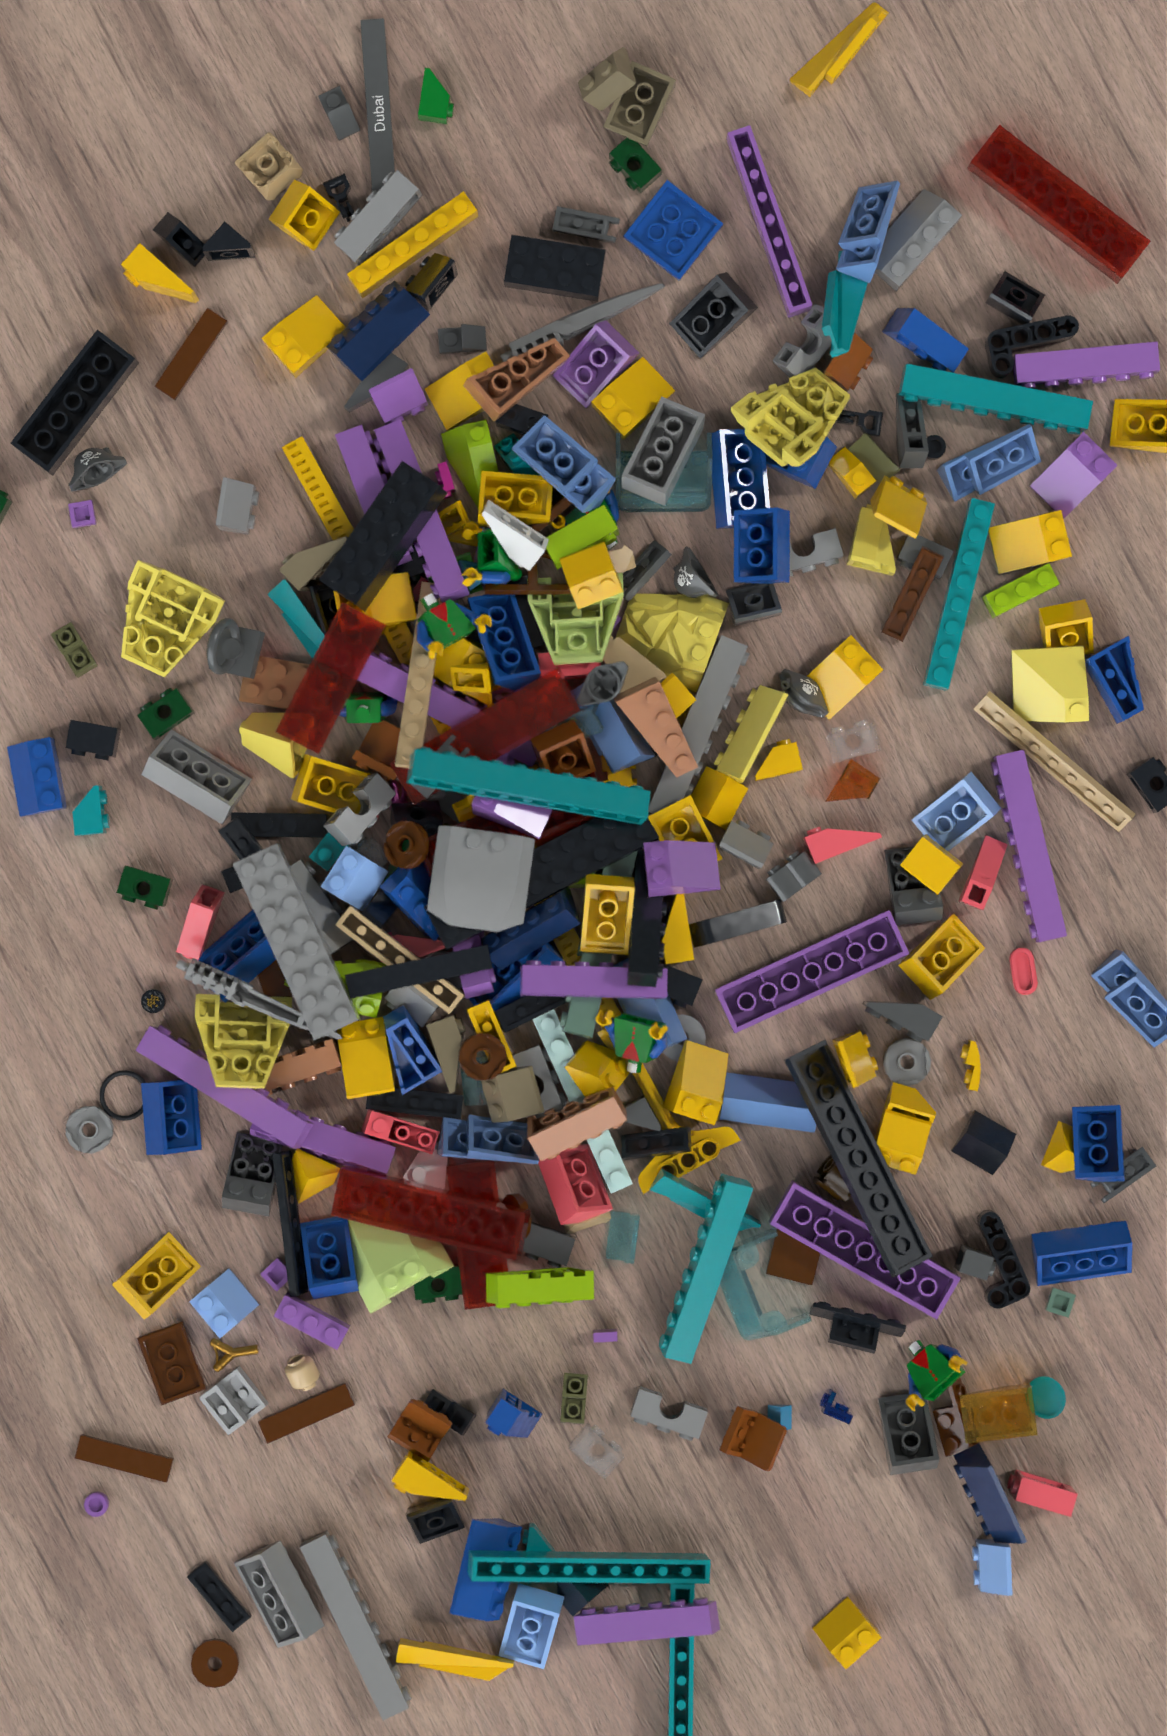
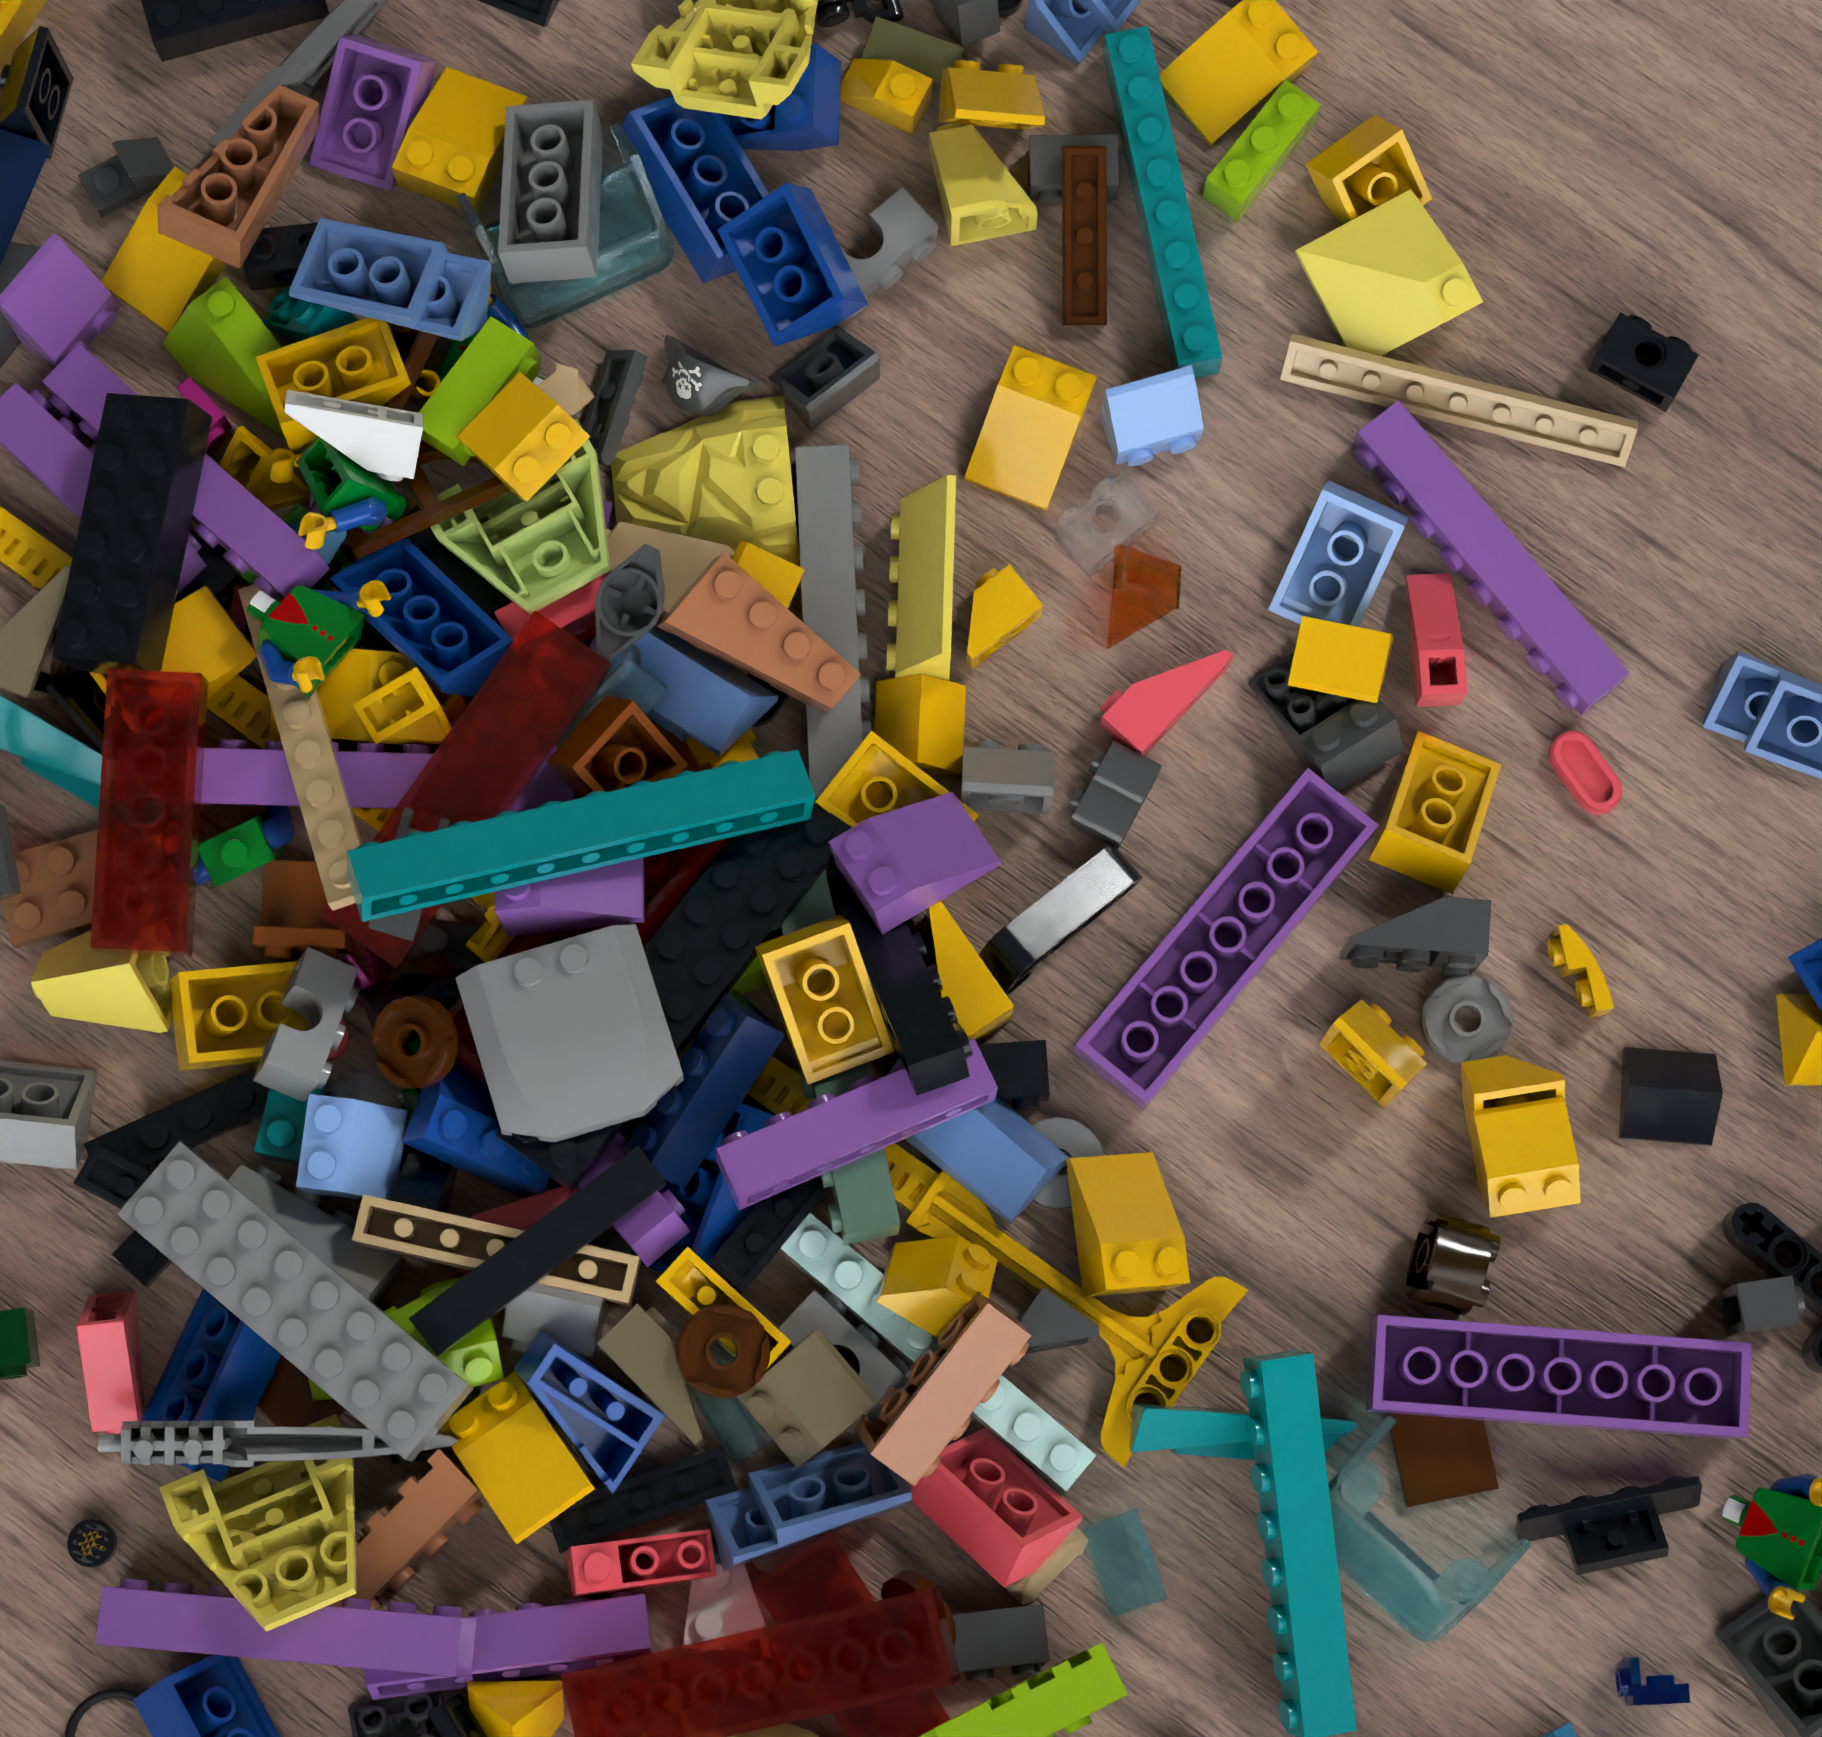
camera: 30 degrees left, 10 degrees down
(634, 1037) = (976, 1192): torso -> none
(656, 1143) = (1103, 1365): black tile -> none
(765, 1103) = (1269, 1200): medium blue slope -> none
(803, 694) = (985, 485): dark grey hat -> none
(858, 1158) = (1471, 1216): black plate -> none
(901, 702) = (1152, 416): none -> light blue slope
(1116, 679) = (1493, 219): blue wedge -> none

